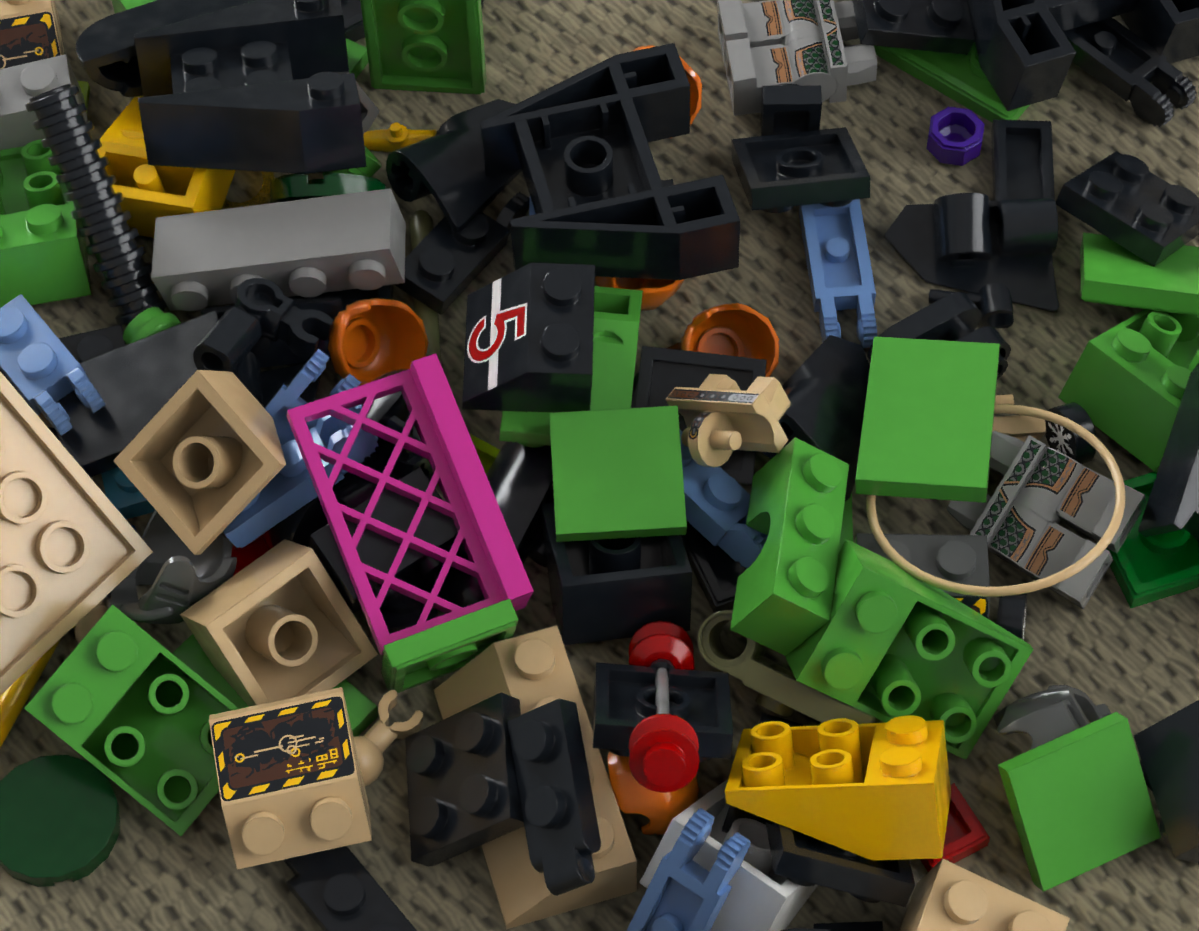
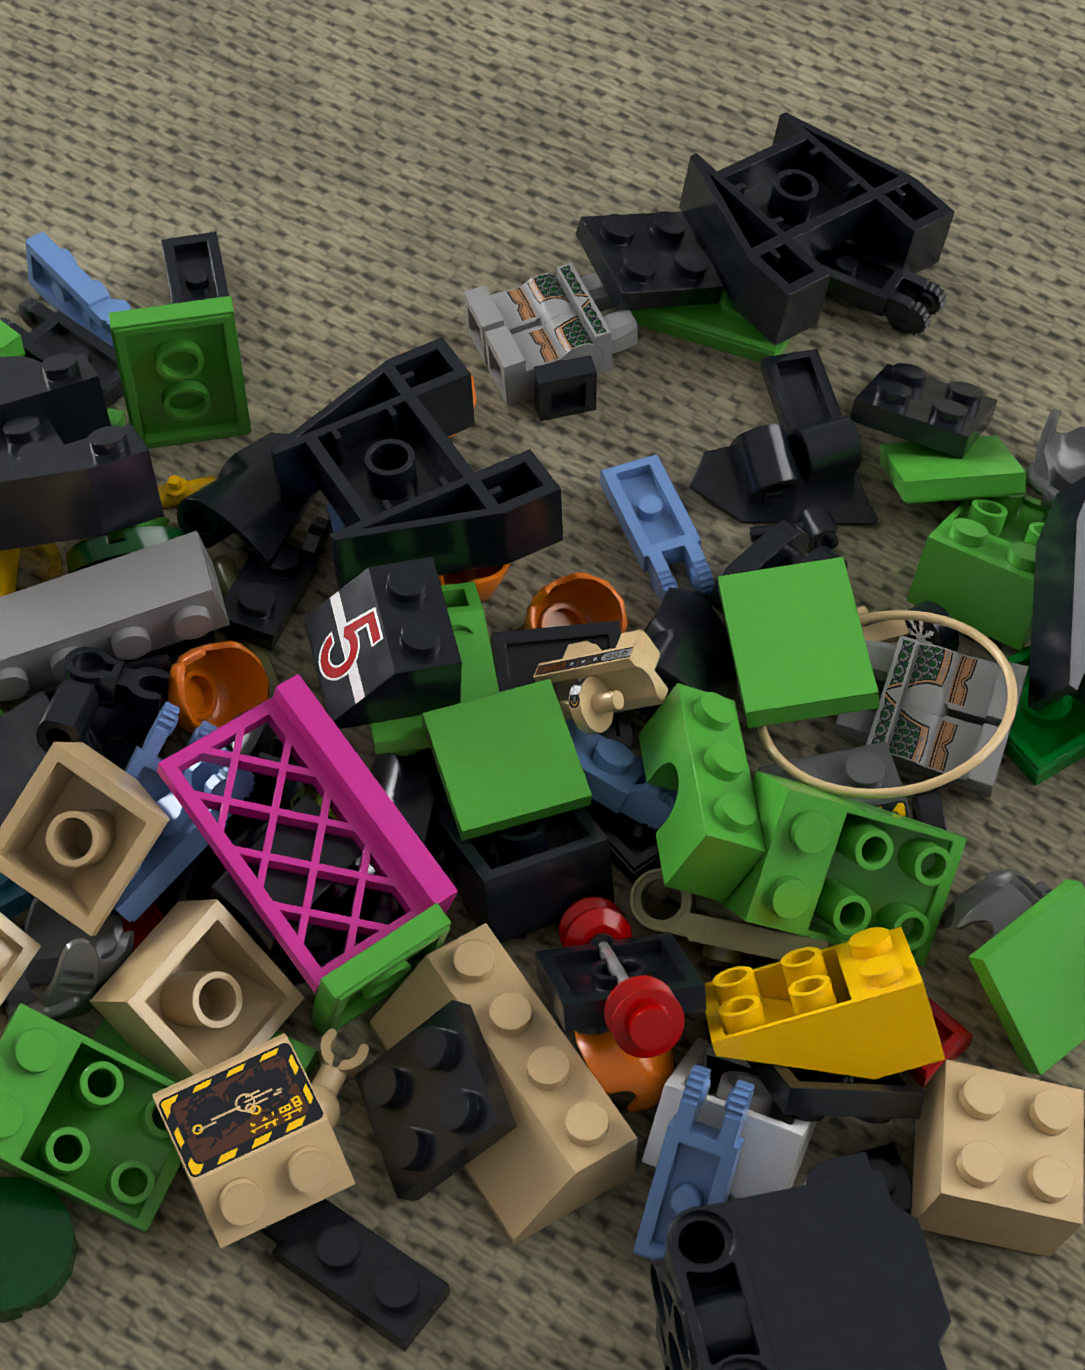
camera: 15 degrees left, 5 degrees down
(555, 794) = (538, 1089): black hinge -> none
(800, 169) = (593, 438): black plate -> none
(955, 136) = (730, 380): dark purple tile -> none

